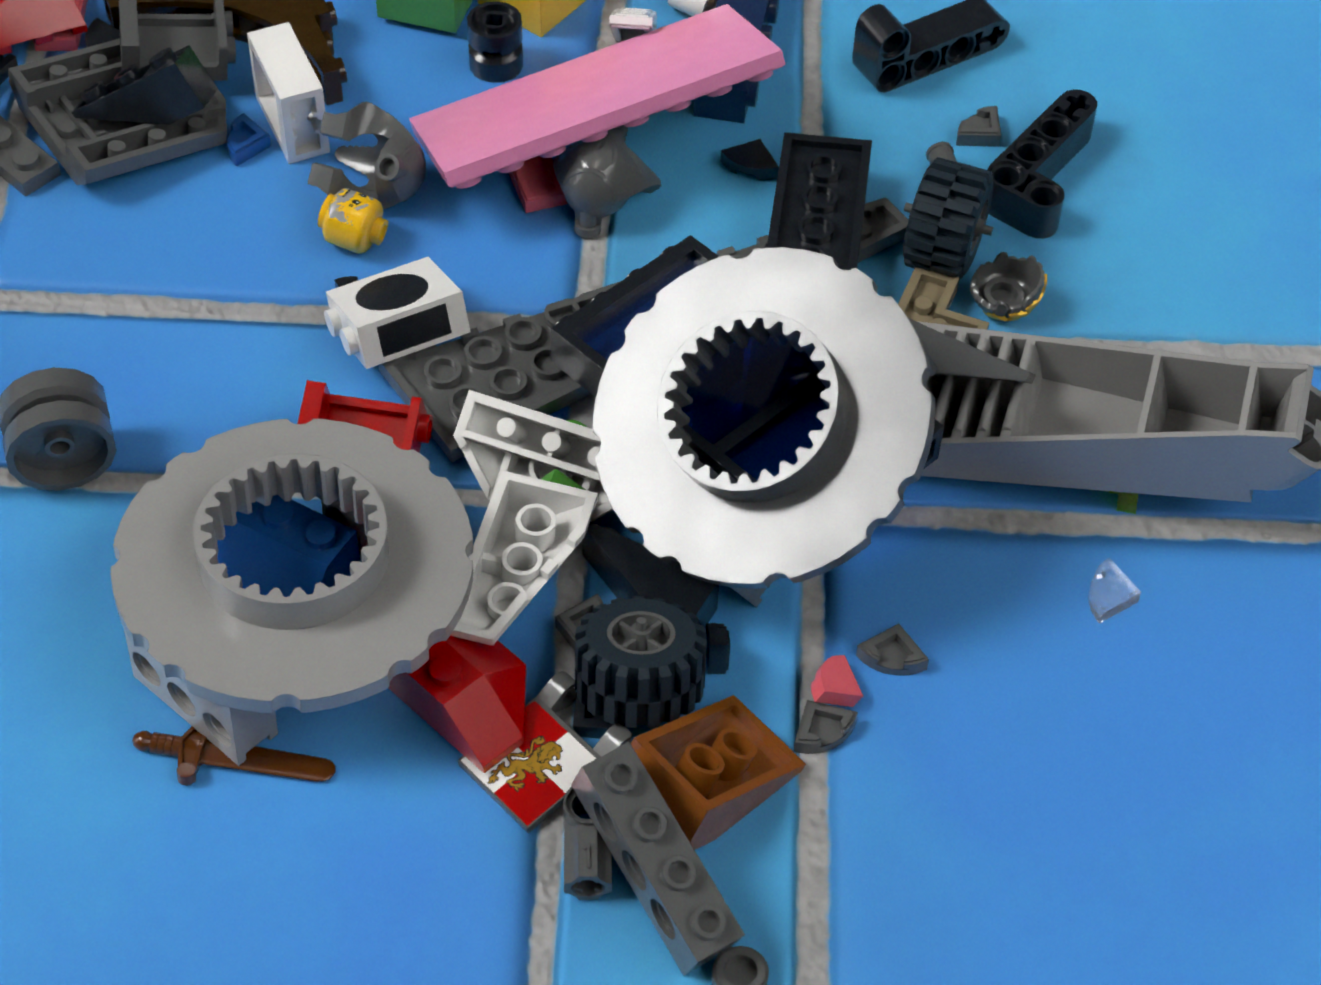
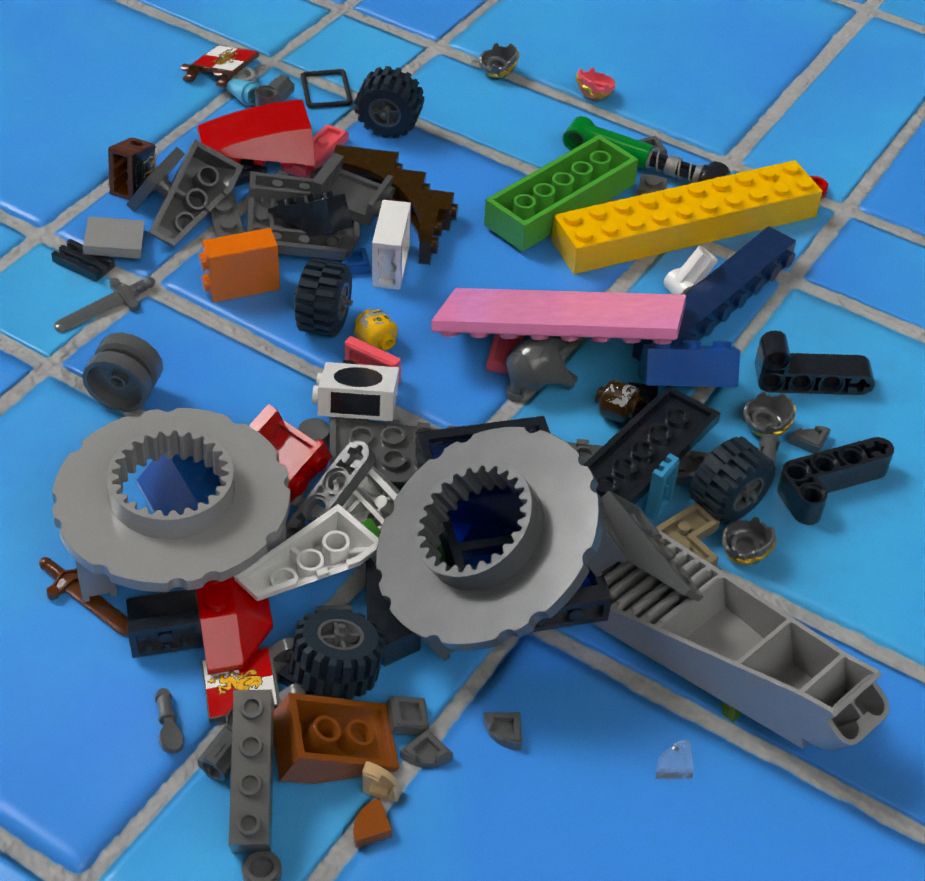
camera: 30 degrees right, 5 degrees down
(101, 207) = (240, 265): none -> orange brick
(258, 204) = (323, 297): none -> black wheel
(371, 258) = (366, 354): none -> coral tile
(372, 387) = (316, 429): none -> dark grey tile
(377, 739) = (163, 623): none -> black bracket
(393, 166) = (416, 307): dark grey piece -> none
(487, 466) = (323, 490): none -> dark grey beam
(494, 874) = (170, 735): none -> dark grey piece
(495, 41) = (536, 263): black wheel -> none
(631, 22) = (626, 283): white slope -> none
(717, 648) = (397, 670): black tile -> none
(732, 180) = (619, 401): none -> dark brown head
(770, 695) = (407, 715): none -> dark grey tile
(793, 95) = (690, 364): none -> blue slope
(801, 793) = (380, 782): none -> tan tile
(827, 848) = (371, 824): none -> dark orange tile
(836, 683) = (452, 727): coral tile -> none
(873, 248) = (662, 487): none -> dark azure tile
(920, 117) = (769, 414): none -> dark grey hair

